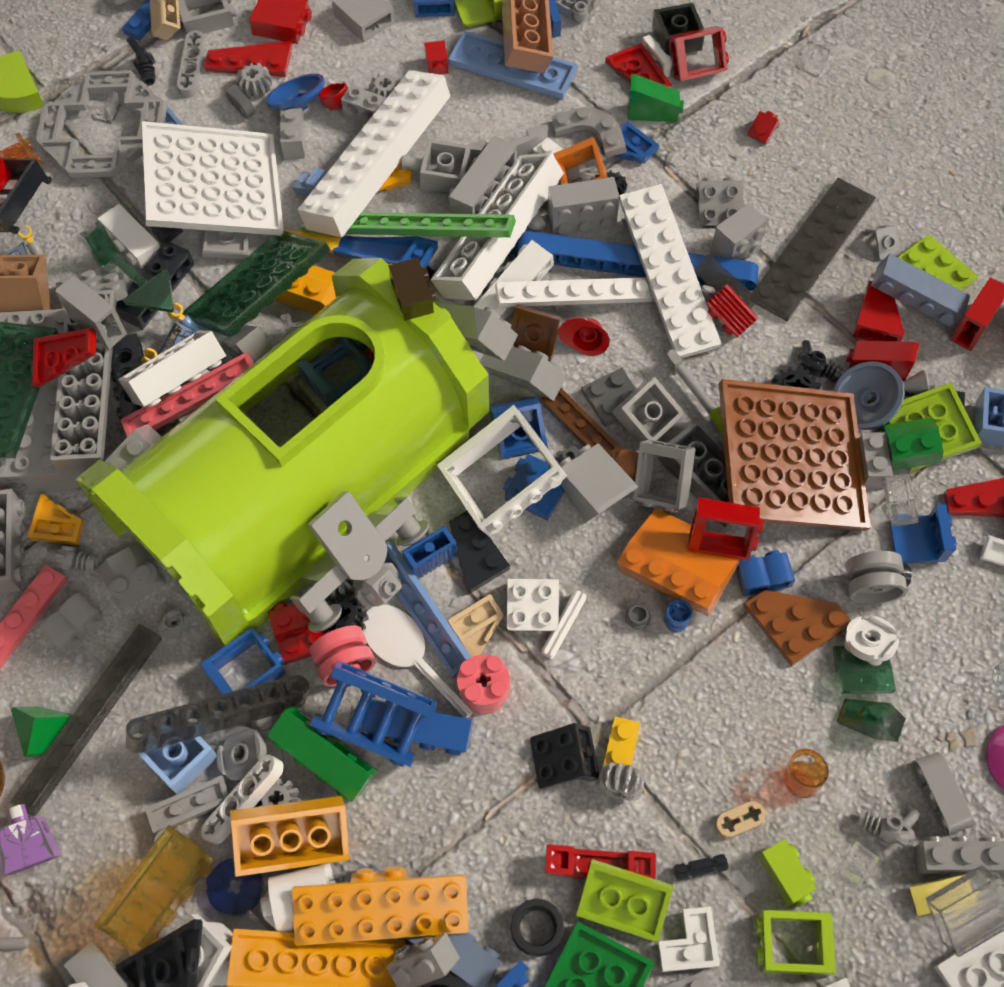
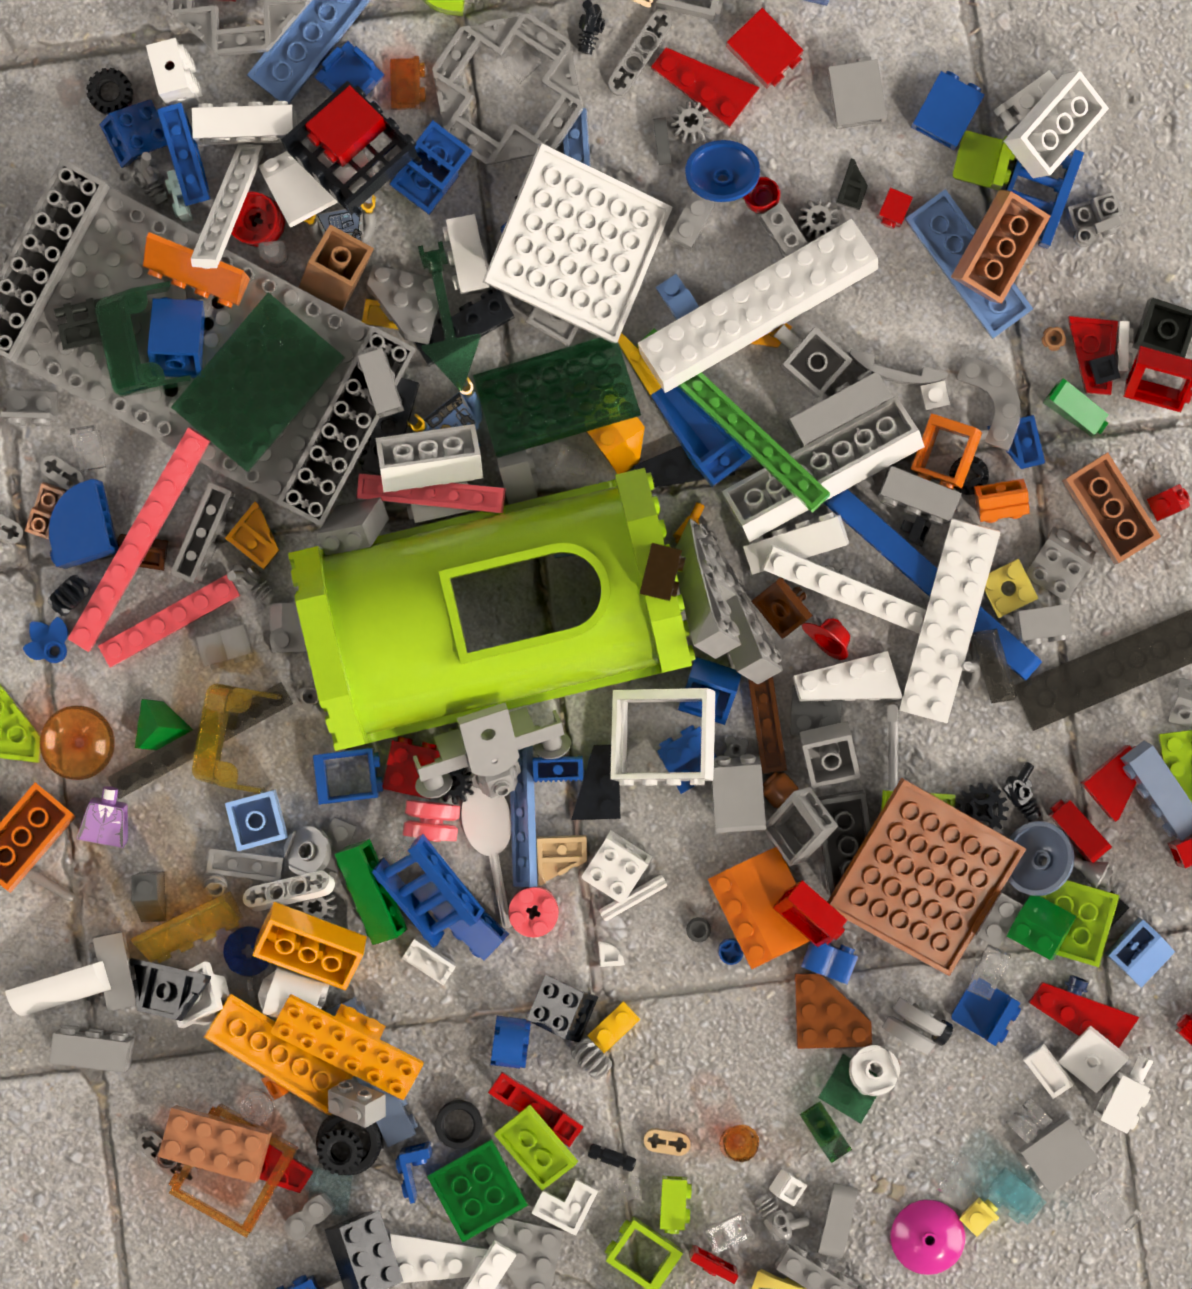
camera: 30 degrees right, 25 degrees up
(60, 353) = (334, 402): red wing -> none
(69, 194) = (436, 173): none -> blue bracket
(97, 878) = (149, 896): none -> dark grey slope
(103, 723) = (217, 703): none -> clear yellow windscreen
(208, 721) = (294, 816): clear smoke beam -> none
(397, 63) = (853, 187): none -> pearl dark grey tile
(415, 788) = (429, 961): none -> white hinge
(536, 812) = (510, 1042): none -> blue brick
(575, 685) = (609, 955): none -> white tile
(598, 233) = (916, 530): none -> black tile
(605, 76) = (1060, 338): none -> medium nougat plate
(624, 356) = (852, 680): none -> white wing
(647, 176) = (1002, 500): none -> orange brick
(655, 68) = (1104, 369): none -> black plate
(696, 227) = (1023, 593): none -> light yellow piece
(728, 145) = (1111, 508): none -> nougat brick
(731, 311) = (978, 698): red brick -> none
(867, 905) = (712, 1264): none -> red plate
(875, 793) = (787, 1187): none -> white slope
(973, 475) = (1077, 985): none -> dark blue plate

